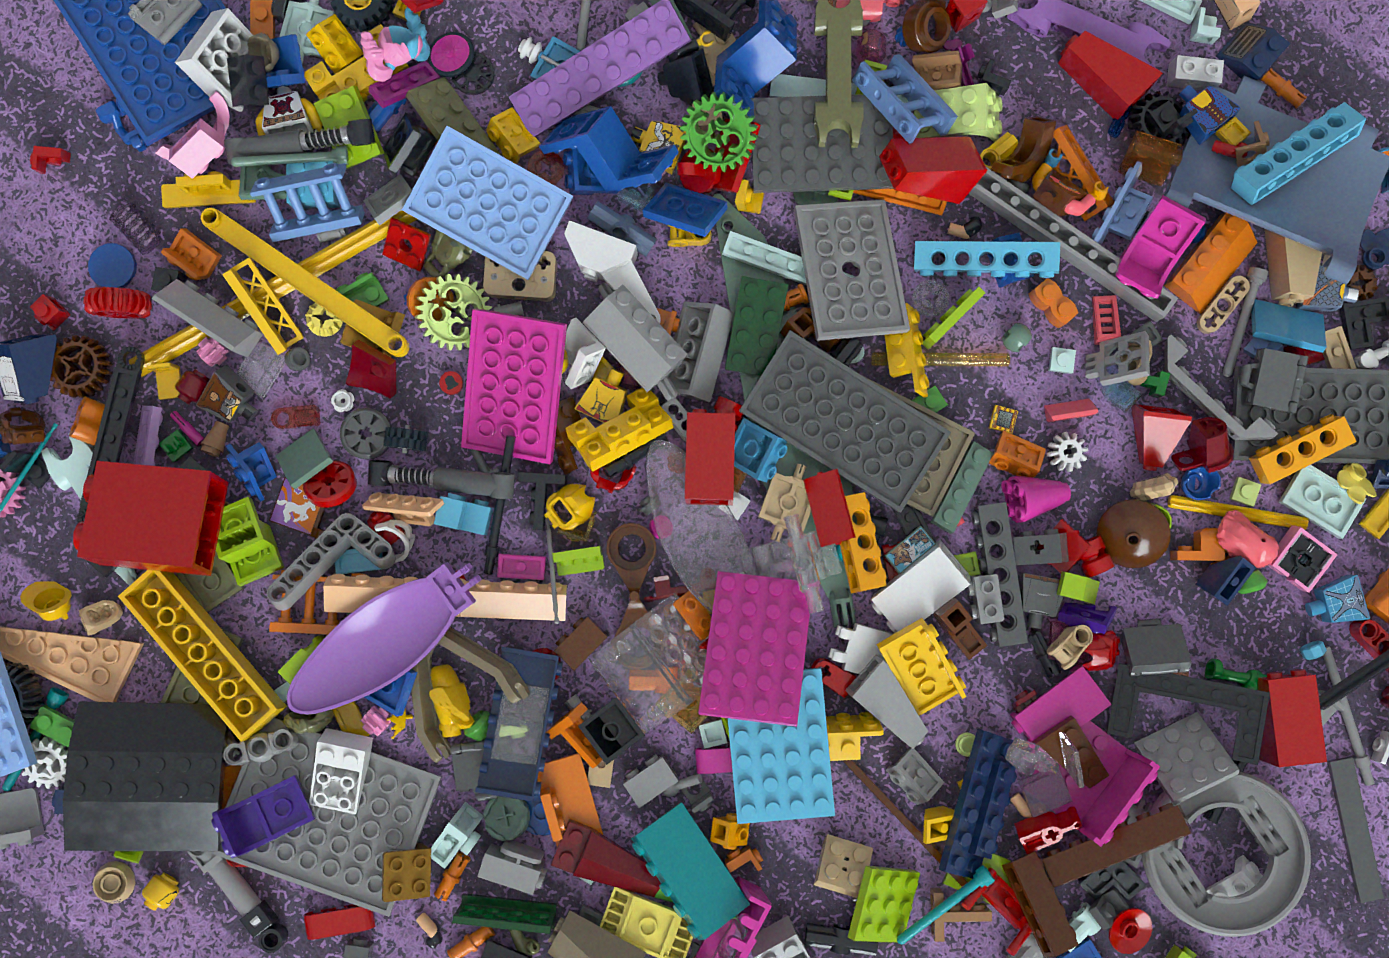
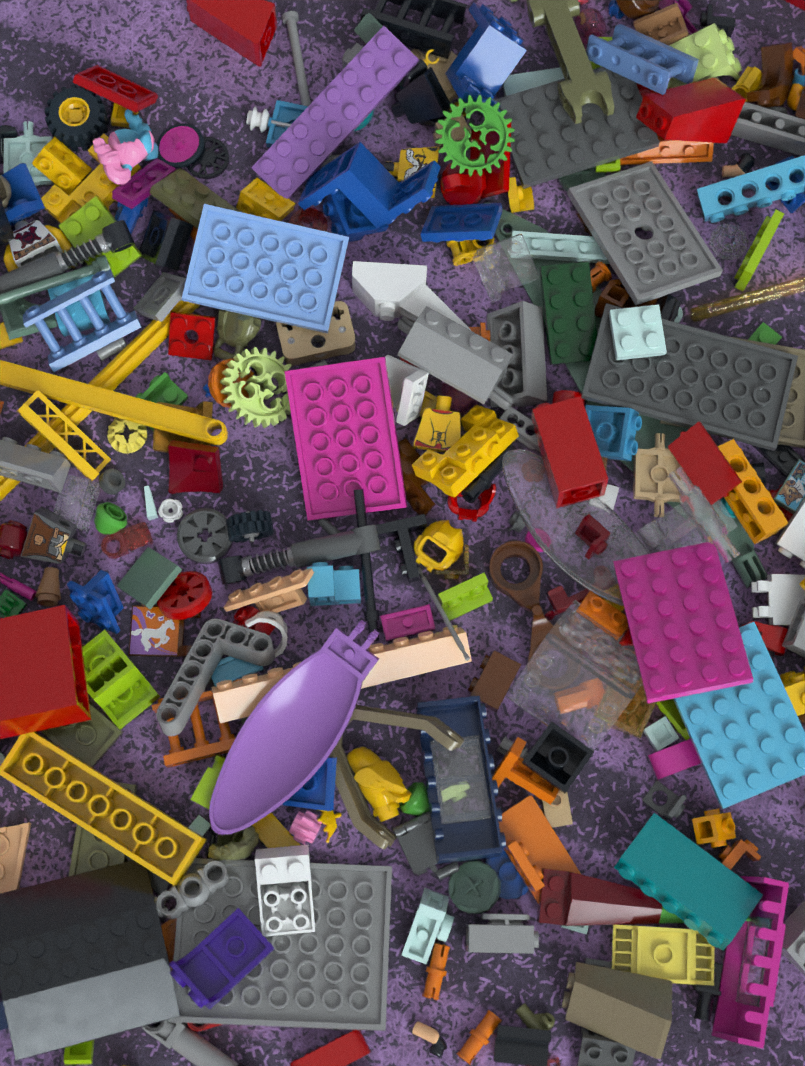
camera: 20 degrees left, 10 degrees down
(212, 351) = (21, 498): bright pink gear -> none
(285, 392) = (109, 518): none -> bright green cone
(325, 393) = (150, 506): none -> light aqua piece
(406, 874) = (390, 977): pearl gold bracket -> none
(451, 383) = (277, 460): red tile -> none
(506, 913) = (508, 990): dark green fence -> none
(621, 227) = (386, 253): sand blue piece -> none
(633, 198) = (406, 230): clear light blue bracket -> none
(650, 780) = (613, 801): light grey brick -> none
(683, 783) = (635, 804): light grey bar -> none
(710, 263) = (505, 266): none -> clear bracket
(711, 540) = (593, 535): none -> dark red bracket
(809, 367) = (637, 332): none -> light aqua plate
(906, 355) = (725, 299): yellow bracket -> none

